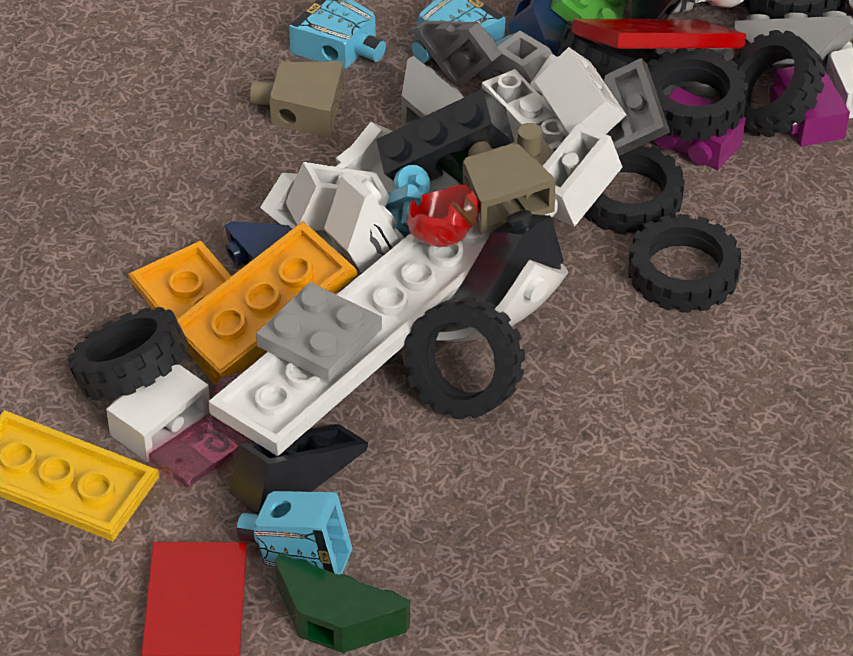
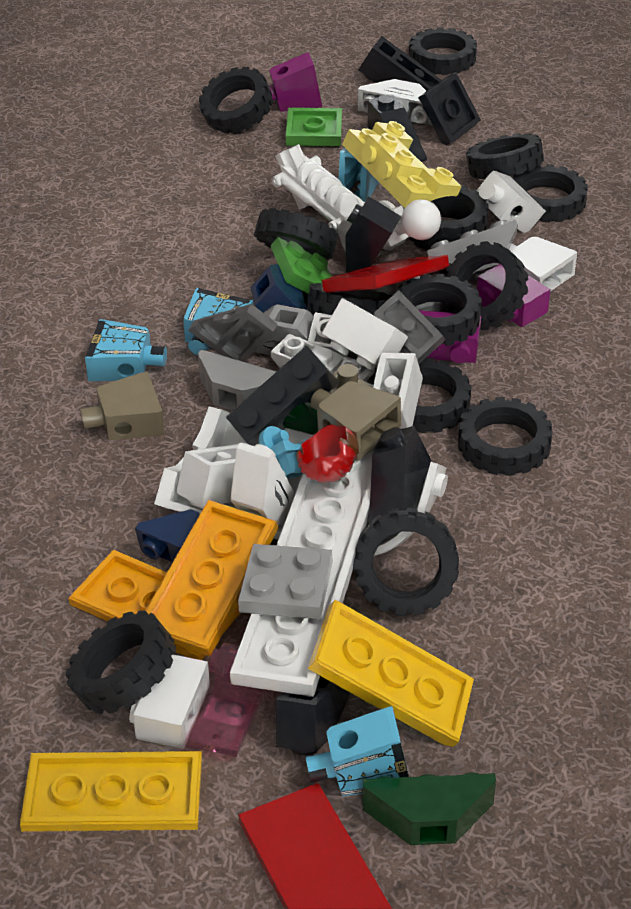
camera: 25 degrees left, 5 degrees down
(375, 465) = (391, 673): none -> yellow tile

